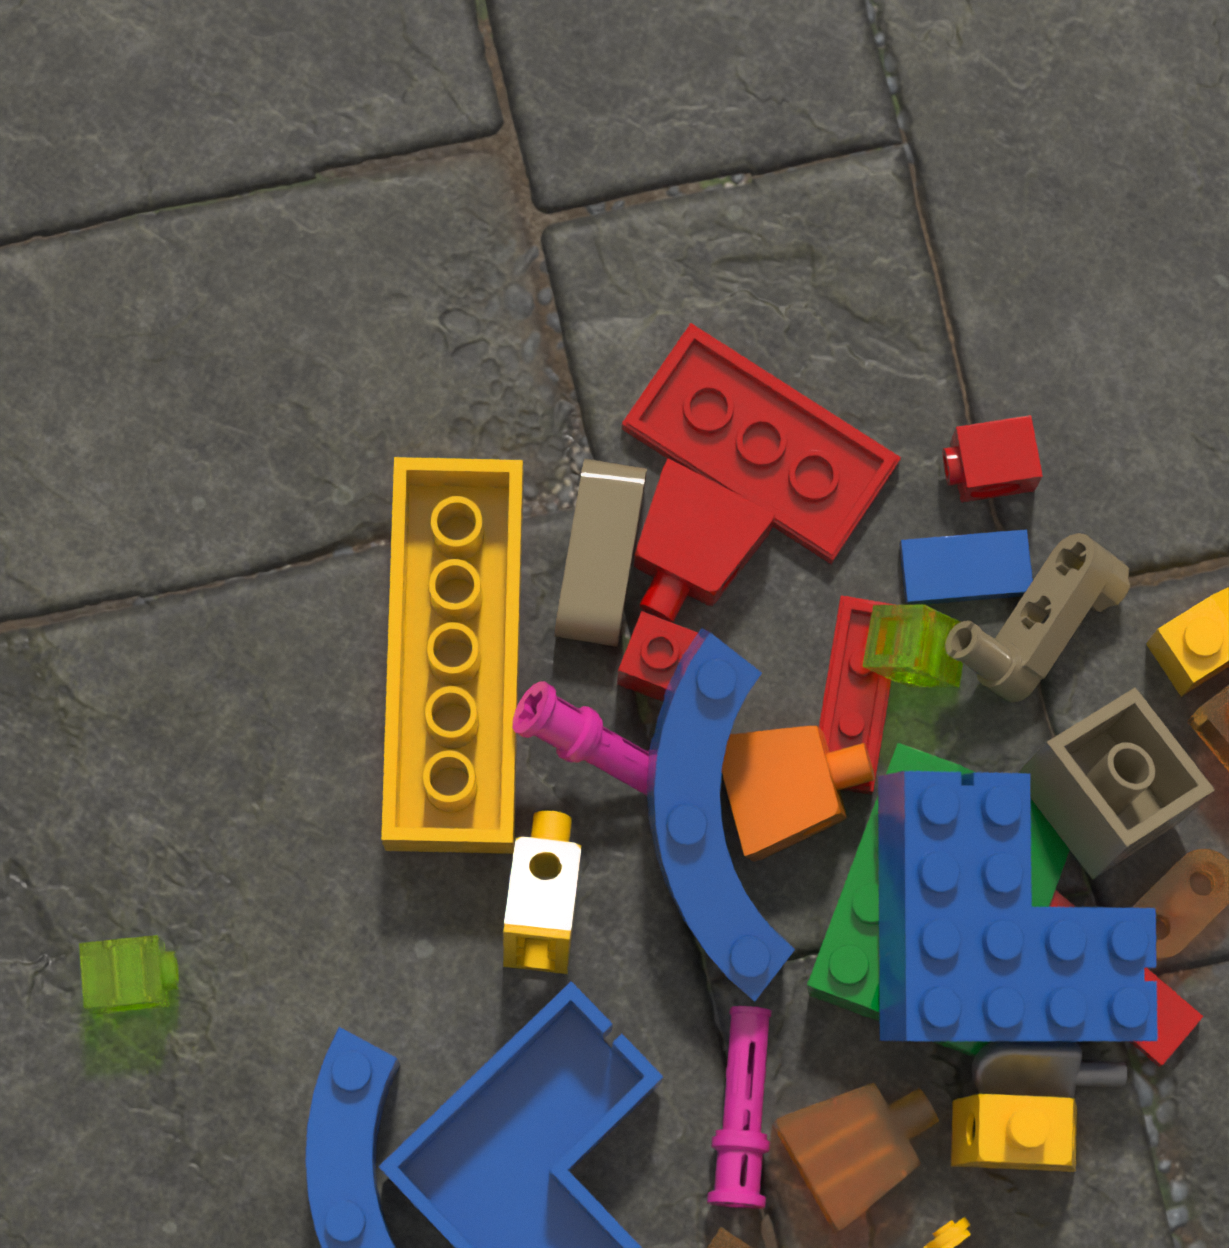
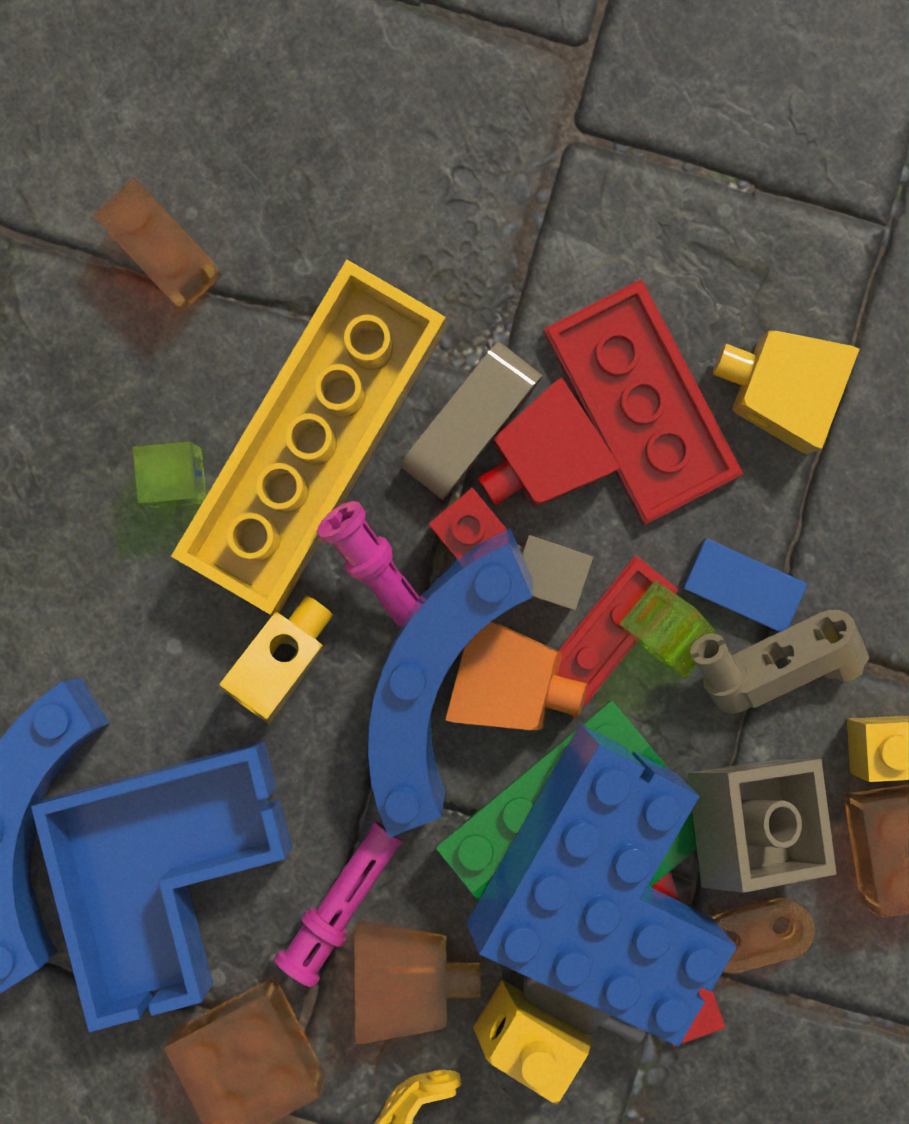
camera: 30 degrees right, 10 degrees up
(190, 549) = (158, 244): none -> clear orange brick
(328, 769) = (169, 474): none -> clear neon green brick
(775, 650) = (555, 571): none -> dark tan brick
(895, 347) = (789, 385): none -> yellow torso
(993, 459) = (814, 515): red brick -> none

